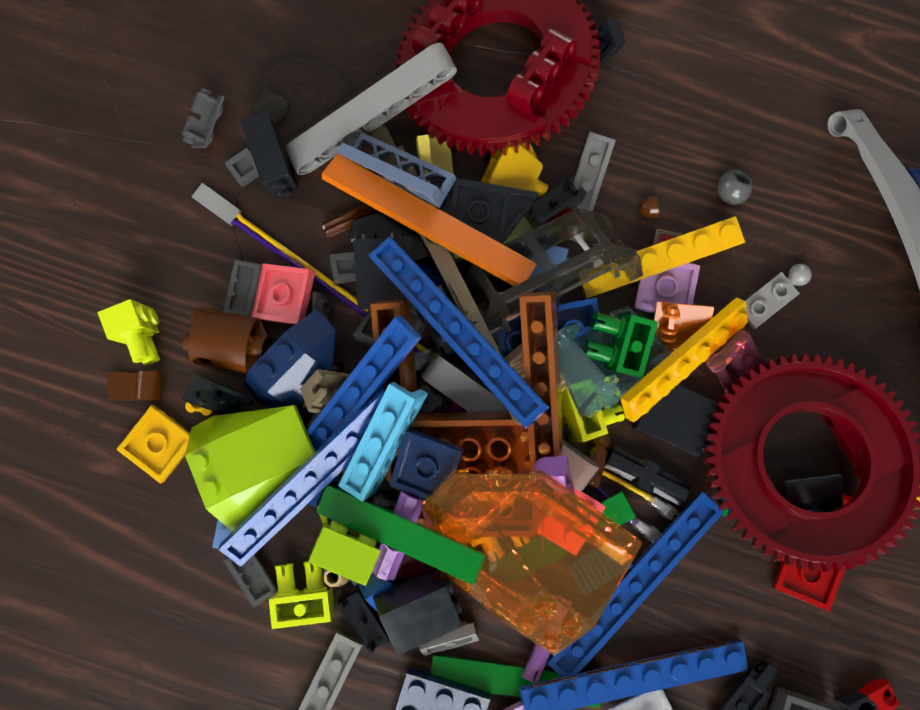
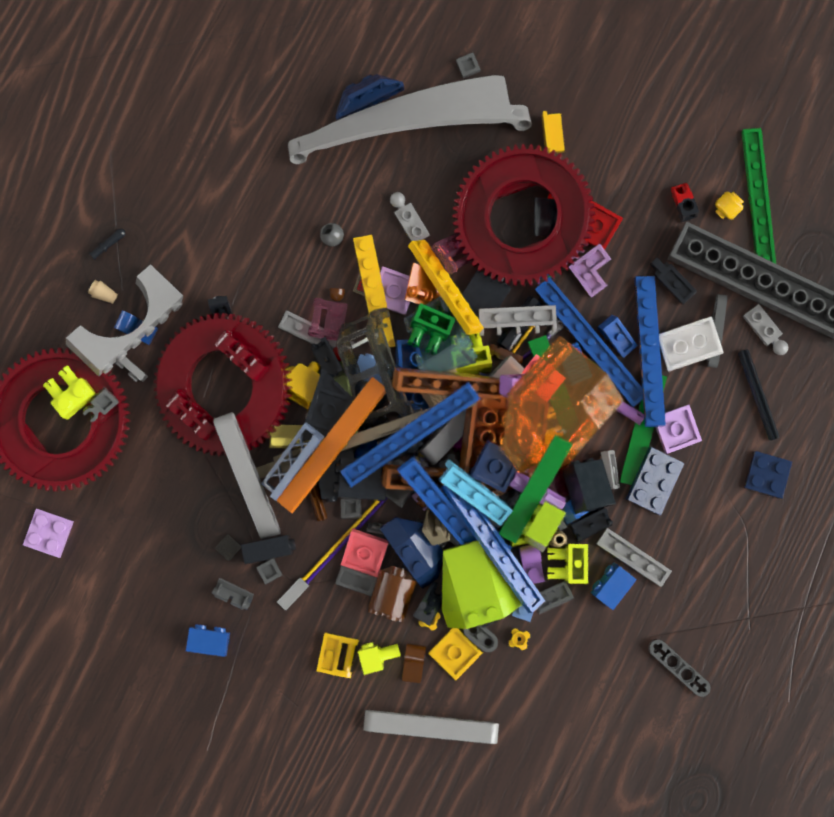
camera: 80 degrees left, 0 degrees up
(46, 423) = (431, 726): none -> light grey beam
(133, 93) = (208, 641): none -> blue brick
(138, 267) = (331, 652): none -> yellow plate
(178, 538) = (515, 635): none -> yellow plate
(180, 475) = (480, 636): none -> dark grey plate
(276, 665) = (612, 585): none -> blue brick
(295, 538) = (531, 563): none -> medium lavender plate
(620, 209) = (335, 317): none -> clear pink plate
(655, 622) = (616, 333): none -> blue plate
(657, 472) = (518, 317): none -> light grey hinge
(745, 565) = (586, 268): none -> lavender plate

